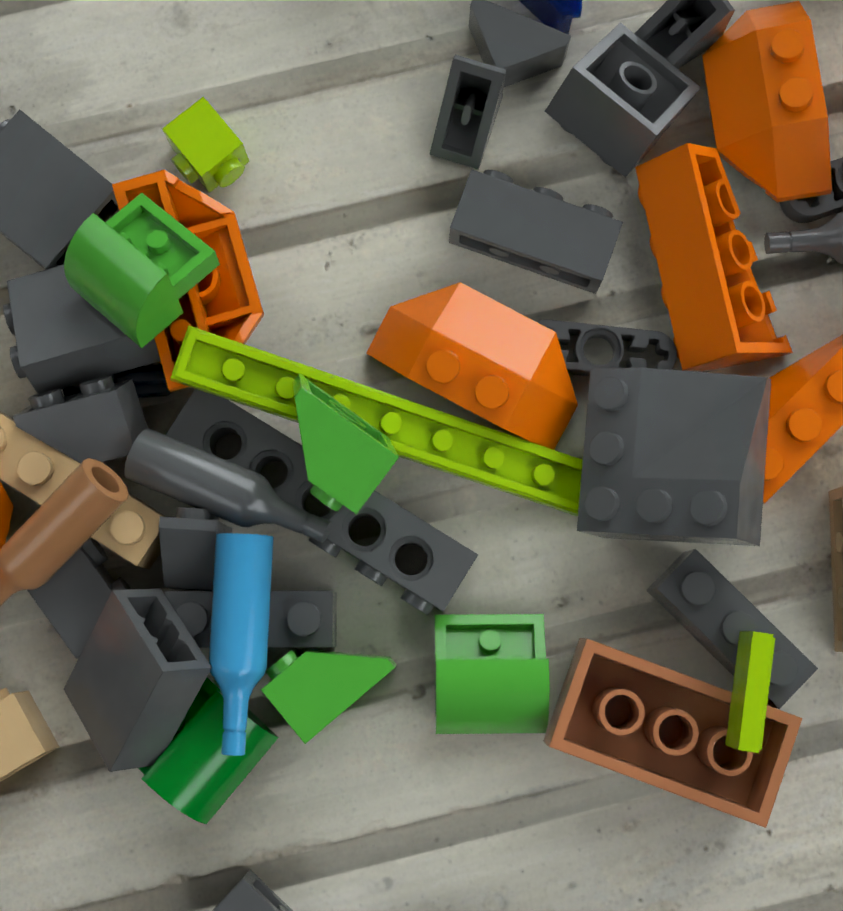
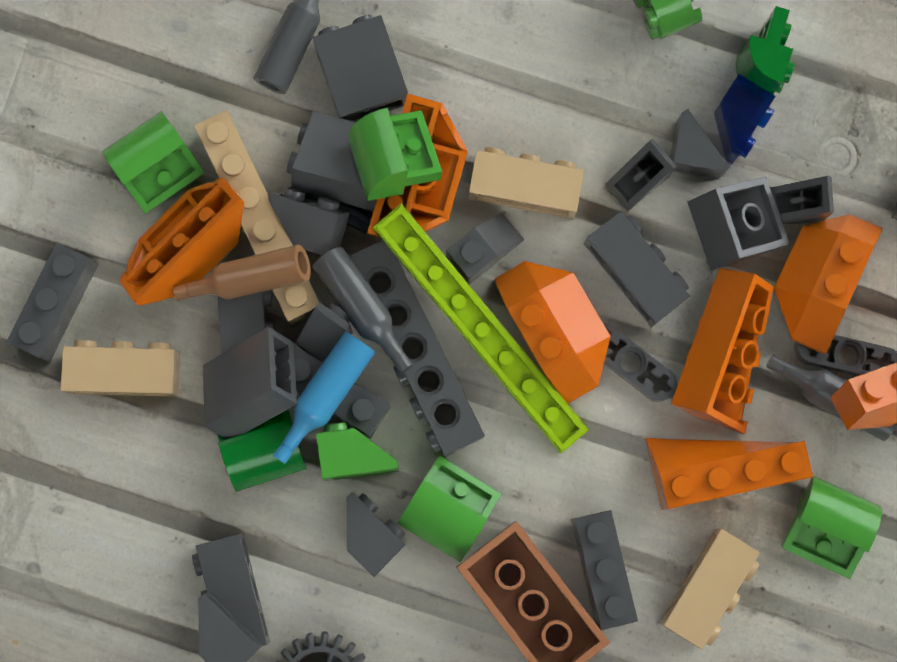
camera: 25 degrees right, 0 degrees up
(205, 147) = (475, 101): lime brick -> none
(328, 320) = (483, 247): none -> dark grey slope
(332, 209) = (526, 183): none -> tan brick
(340, 449) = (444, 327): bright green slope -> none
(411, 774) = (370, 538): none -> dark grey slope
(674, 456) = (632, 449): dark grey slope -> none
(750, 691) = (589, 606): lime tile -> none

